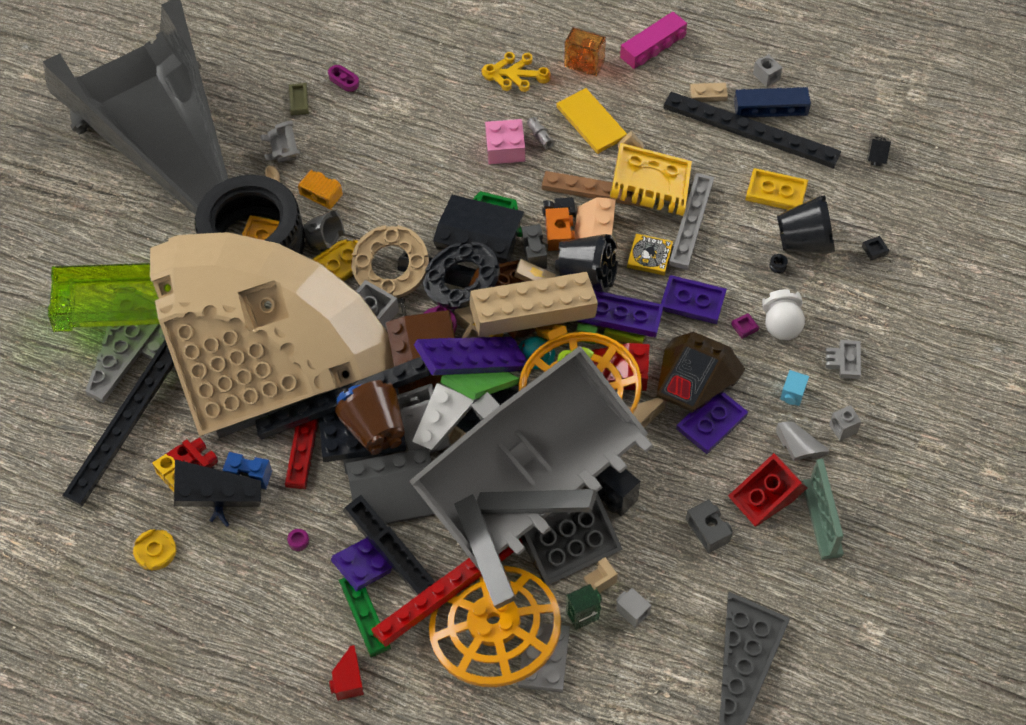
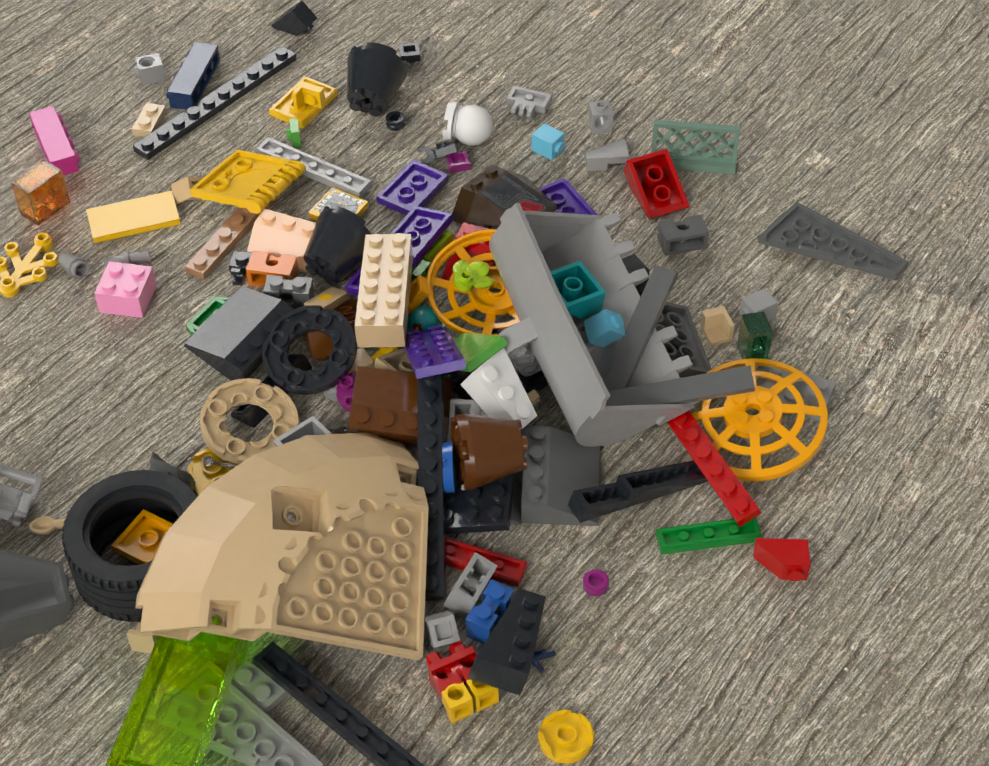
camera: 75 degrees left, 10 degrees down
(223, 440) = (441, 629): none -> light grey brick
(267, 448) = (470, 585): none -> light grey brick
(320, 189) = (100, 467): light orange brick -> none
(347, 275) = (207, 461): none -> clear smoke hinge
(361, 564) = (649, 522): dark purple plate -> none
(522, 102) = (74, 265): none -> light grey cone
(530, 473) = (604, 328): none -> medium azure brick
(554, 435) = (579, 290): none -> teal slope
(727, 194) = (293, 133): none -> bright green plate
(748, 307) = (442, 149): none -> plate
(773, 184) = (308, 94): none -> yellow bracket

